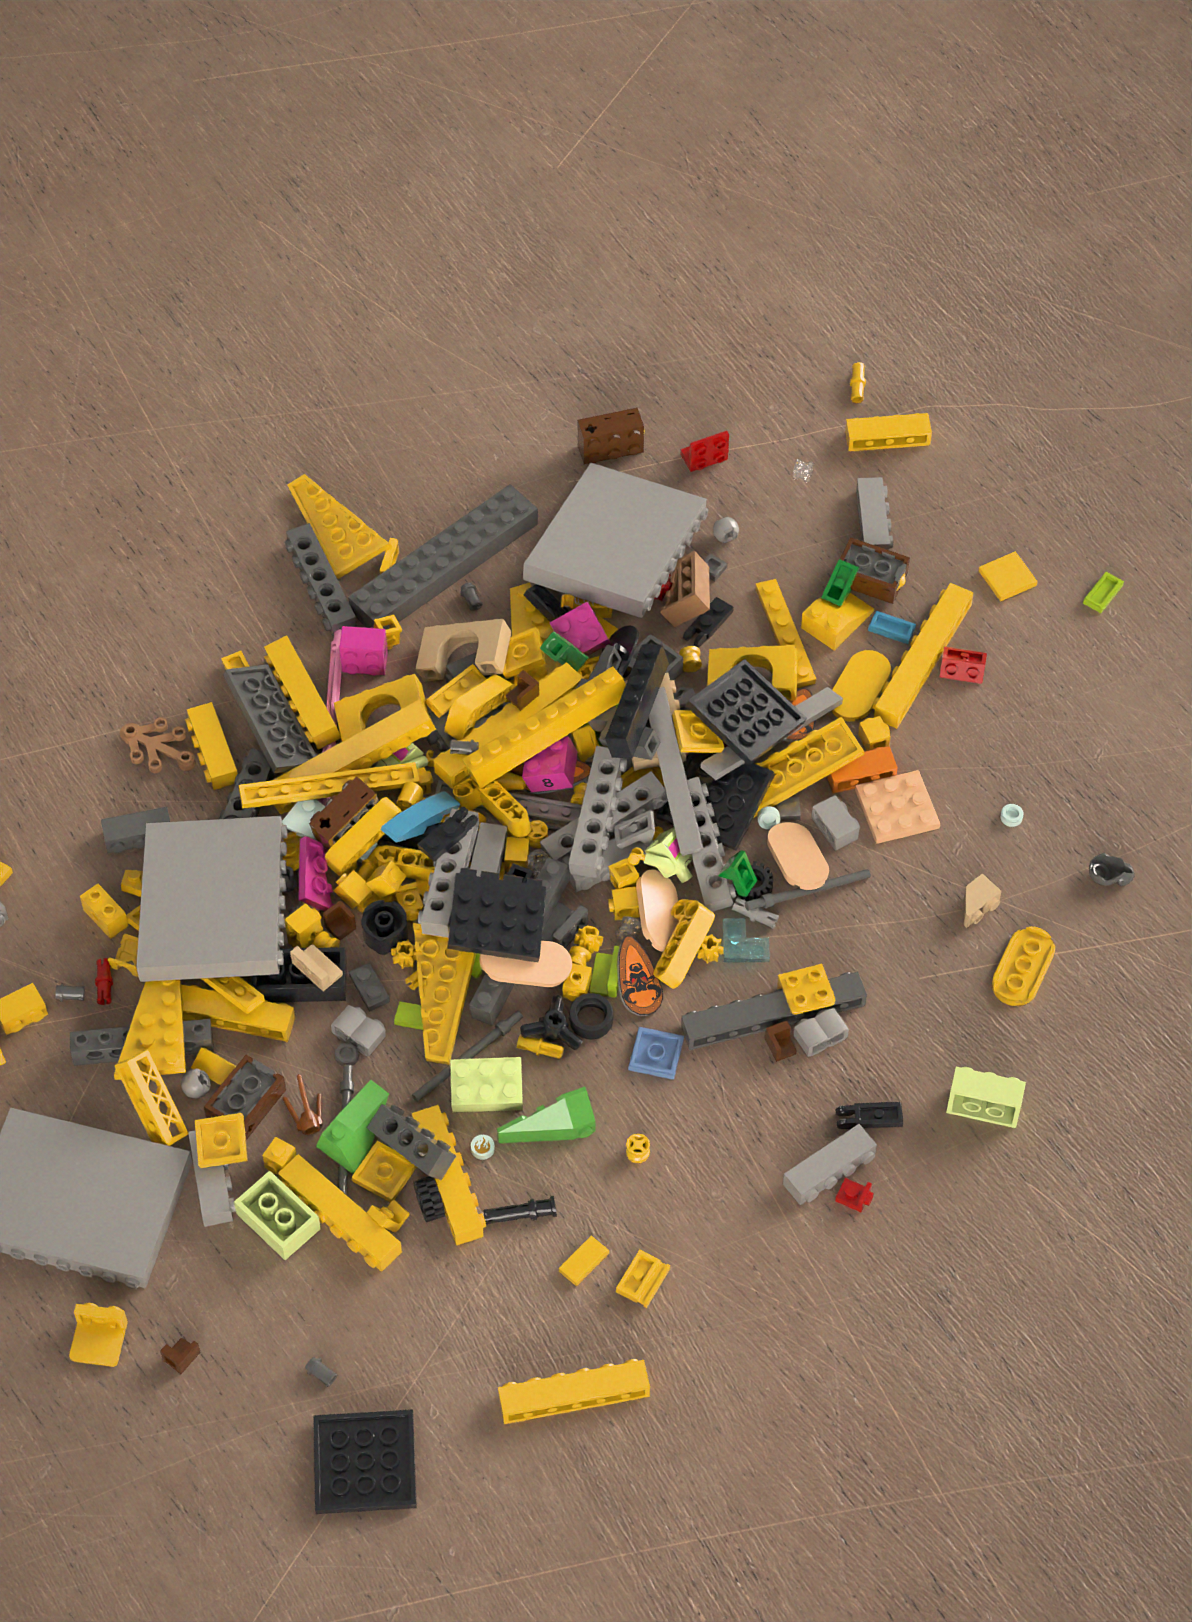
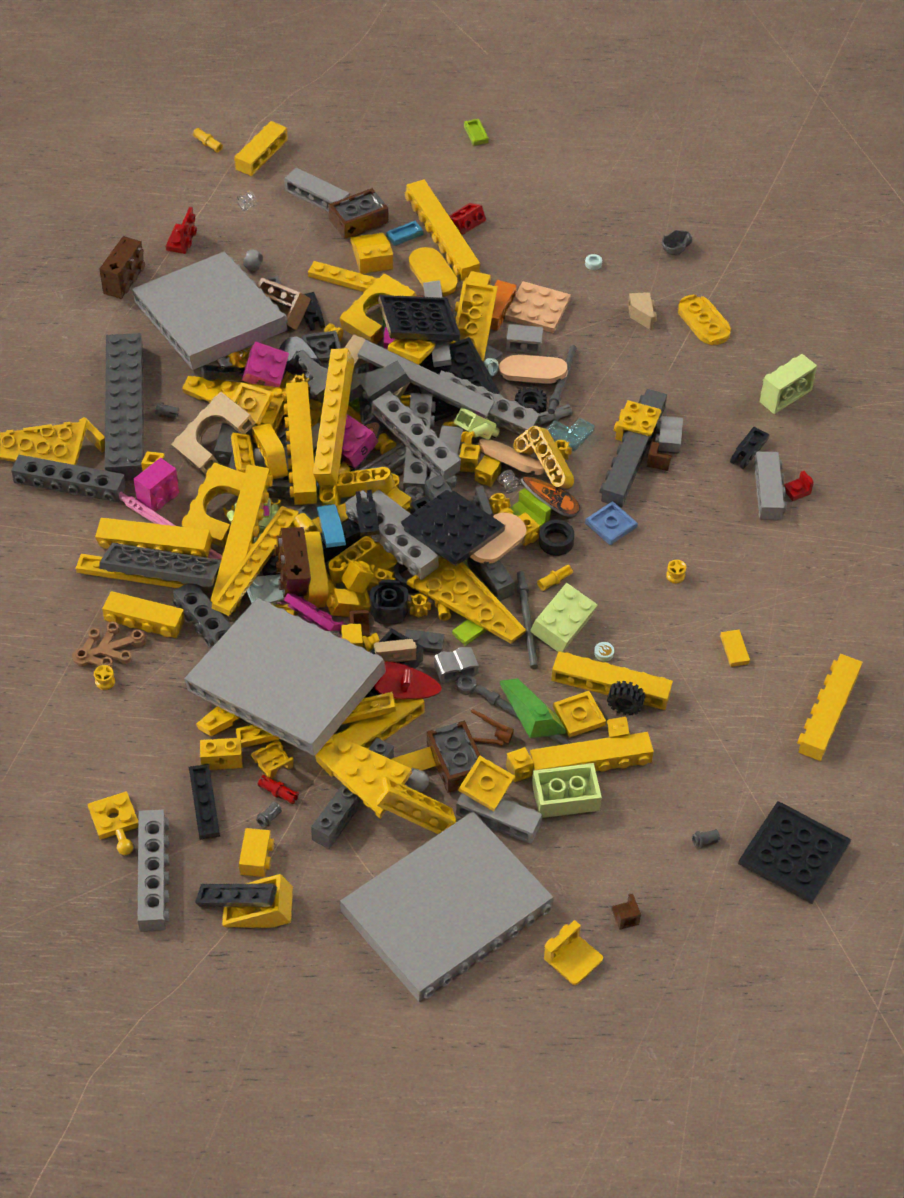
camera: 55 degrees left, 5 degrees down
(45, 933) = (204, 801): none -> black plate
(120, 759) = (100, 674): none -> yellow wheel
(129, 830) = (168, 699): dark grey brick -> none
(289, 999) = (406, 682): none -> red shield
(411, 1141) = (608, 676): dark grey brick -> none
(463, 747) = (303, 468): dark grey pin -> none
(525, 691) = (289, 413): reddish brown panel -> none
(532, 1210) = (675, 651): black pin -> none
(553, 1025) = (547, 558): black bush -> none
(563, 651) = (275, 380): green slope -> none
(563, 1120) = (624, 599): bright green wedge -> none
(636, 829) = (449, 423): light grey slope -> none
(637, 701) = (369, 354): black brick -> none
(642, 1278) = (774, 624): yellow plate -> none
(740, 872) = (525, 395): green slope -> none
(840, 583) = (358, 227): green slope -> none
(1007, 576) = (422, 163): yellow tile -> none

